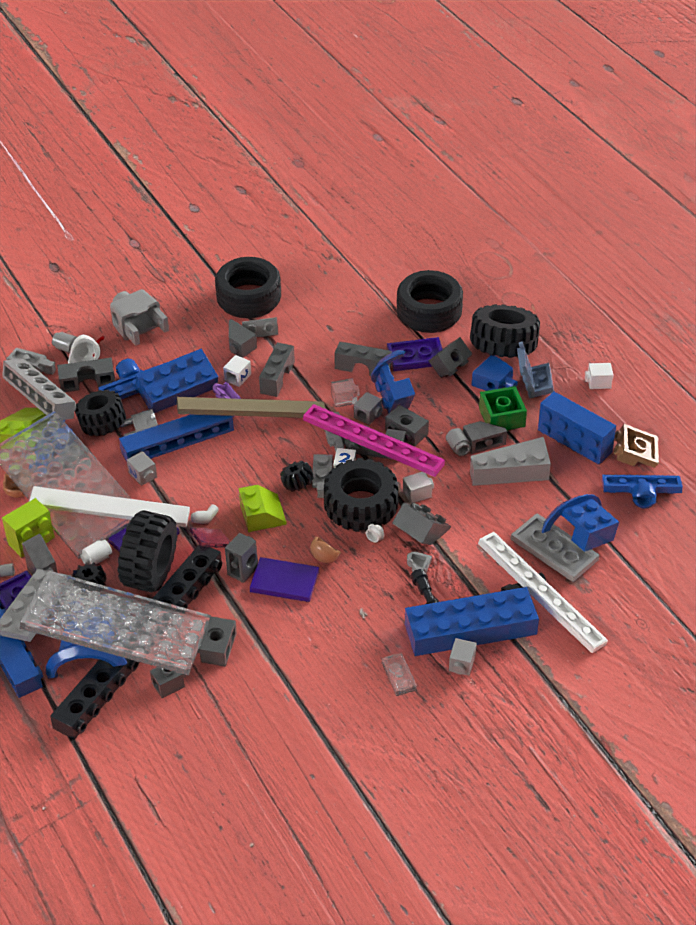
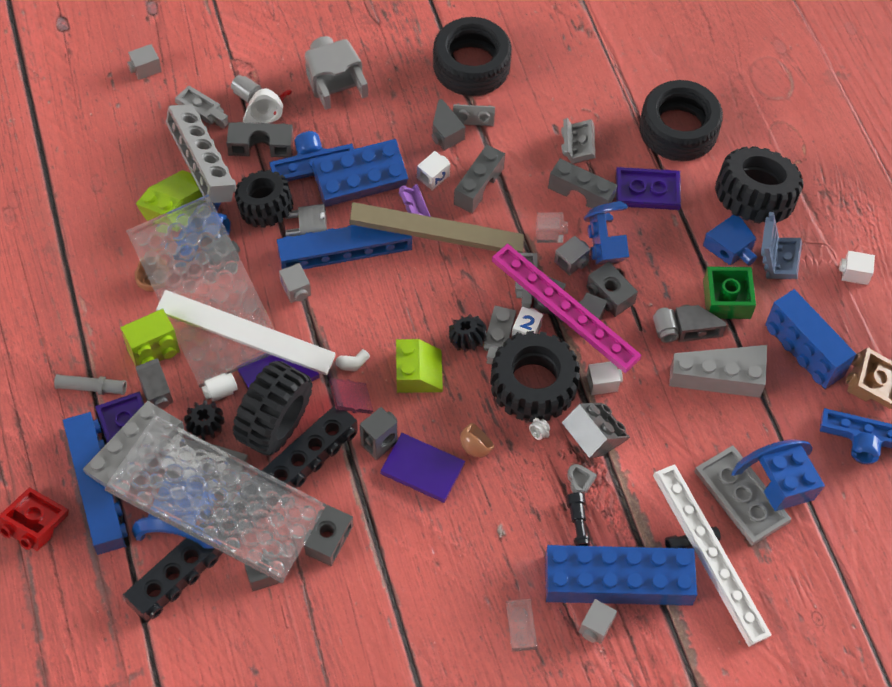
camera: 10 degrees right, 15 degrees up
(351, 329) = (578, 140): none -> light grey bracket
(450, 357) = (675, 207): dark grey brick -> none

